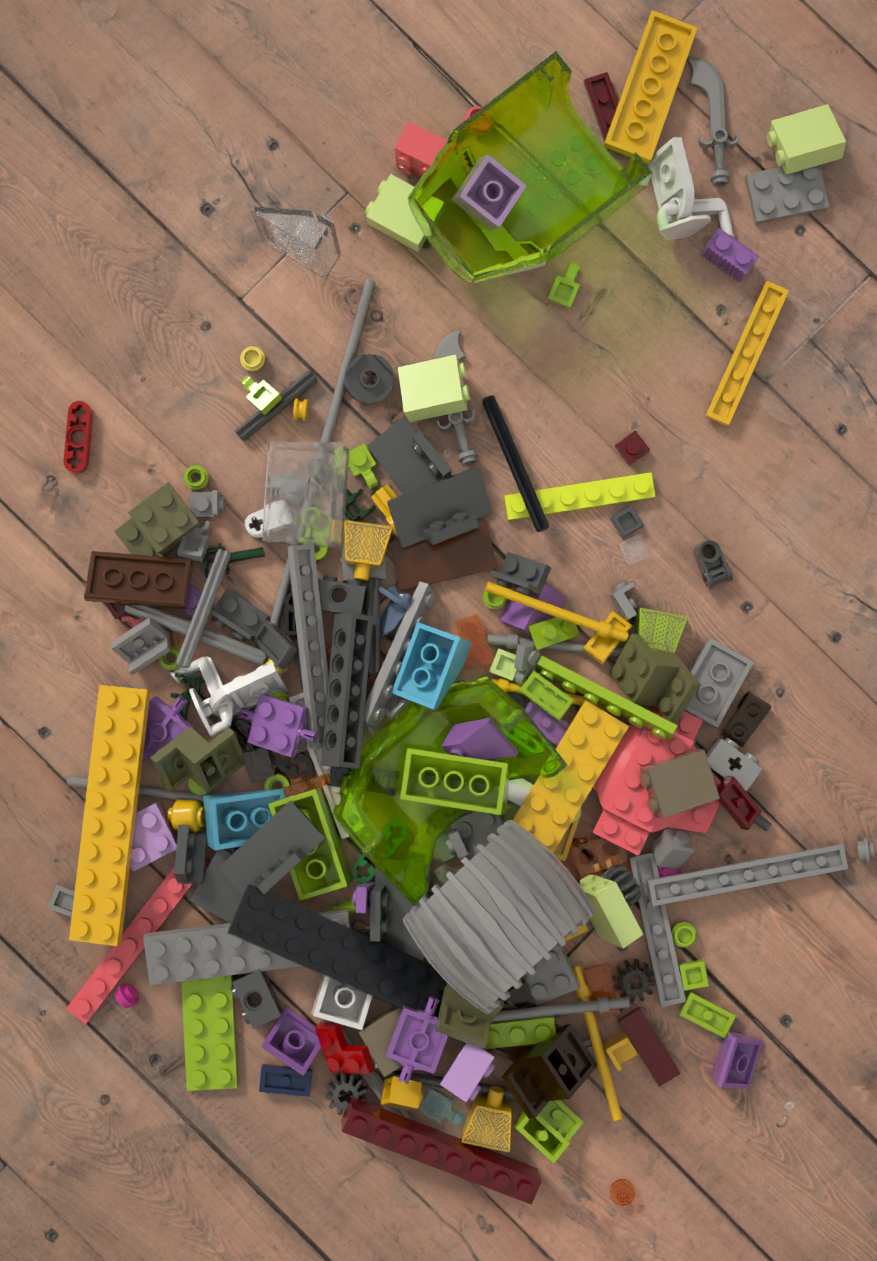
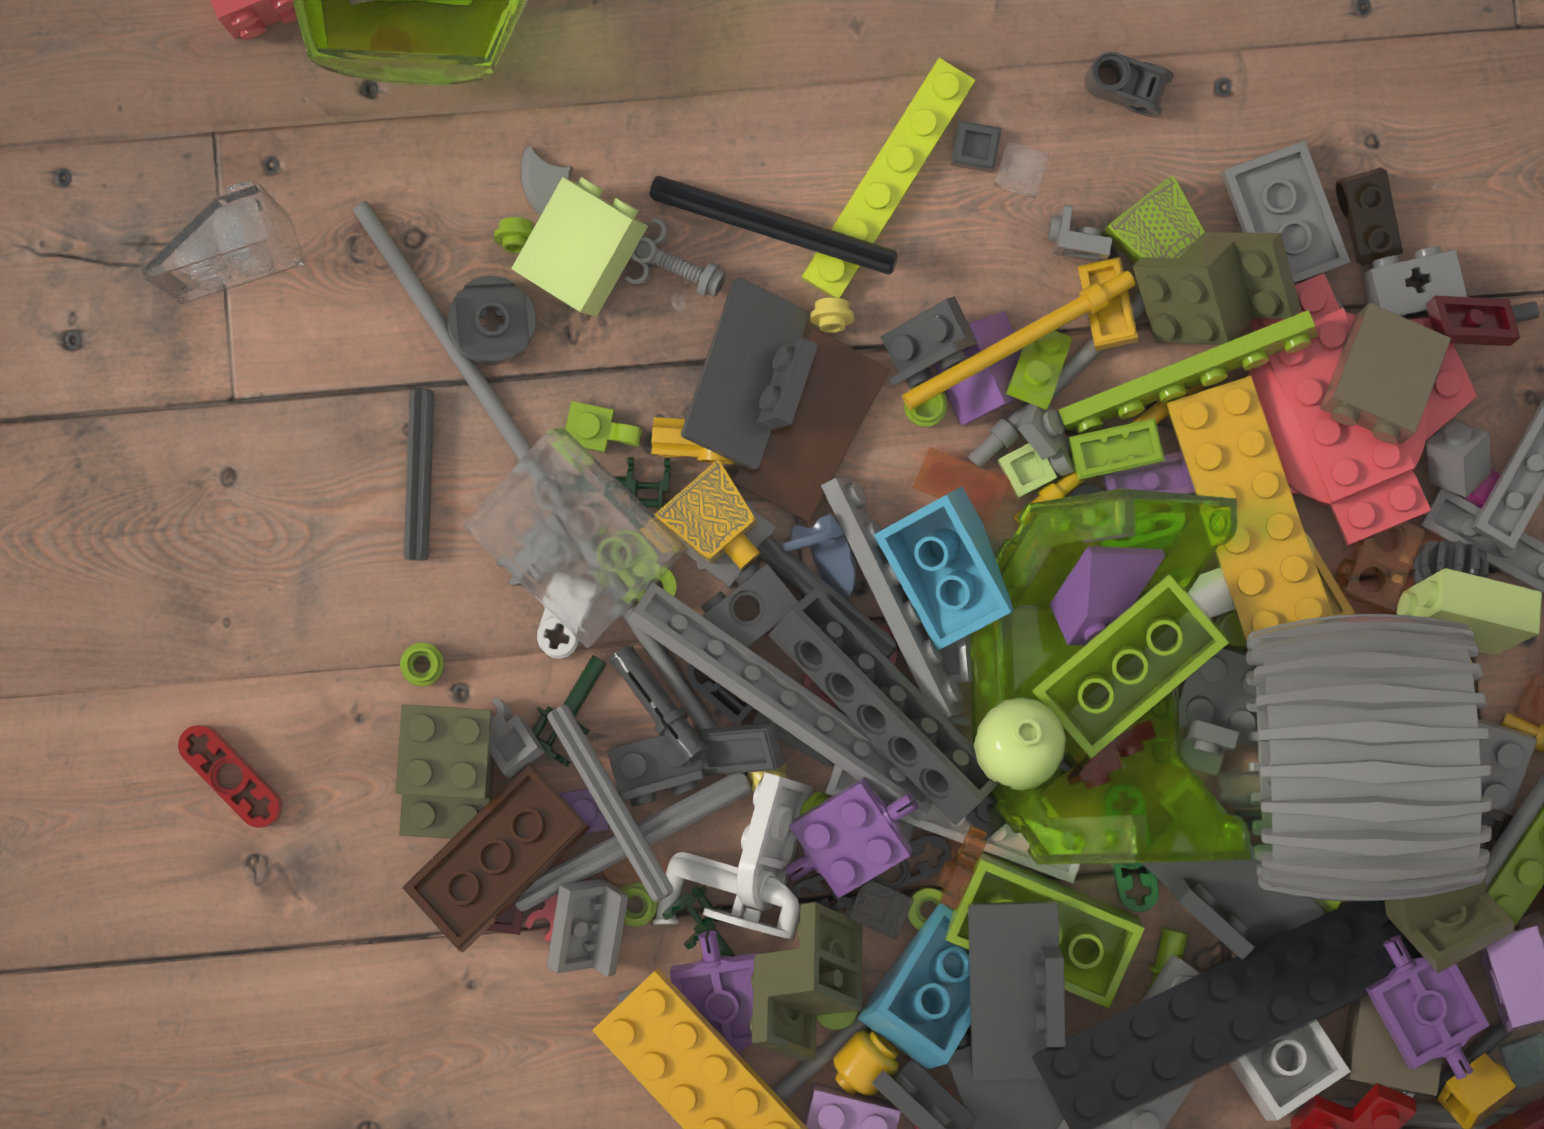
camera: 60 degrees left, 0 degrees up
(207, 504) = (470, 680): light grey bracket -> none
(252, 358) = (328, 452): light yellow plate -> none
(261, 394) = (389, 483): plate -> none
(262, 603) = (668, 718): none -> dark grey pin
(300, 409) = (453, 446): yellow bush -> none
(361, 897) = (1176, 919): medium lavender plate -> none
(379, 762) = (1020, 743): none -> yellowish green cylinder
(393, 215) = (300, 95): yellowish green brick -> none
(399, 806) = (1096, 770): none -> clear red slope
(408, 457) = (643, 358): dark grey bracket -> none
(414, 355) = (513, 233): none -> lime plate
(498, 522) = (832, 315): none -> light yellow plate
(632, 448) = (884, 54): dark red plate -> none

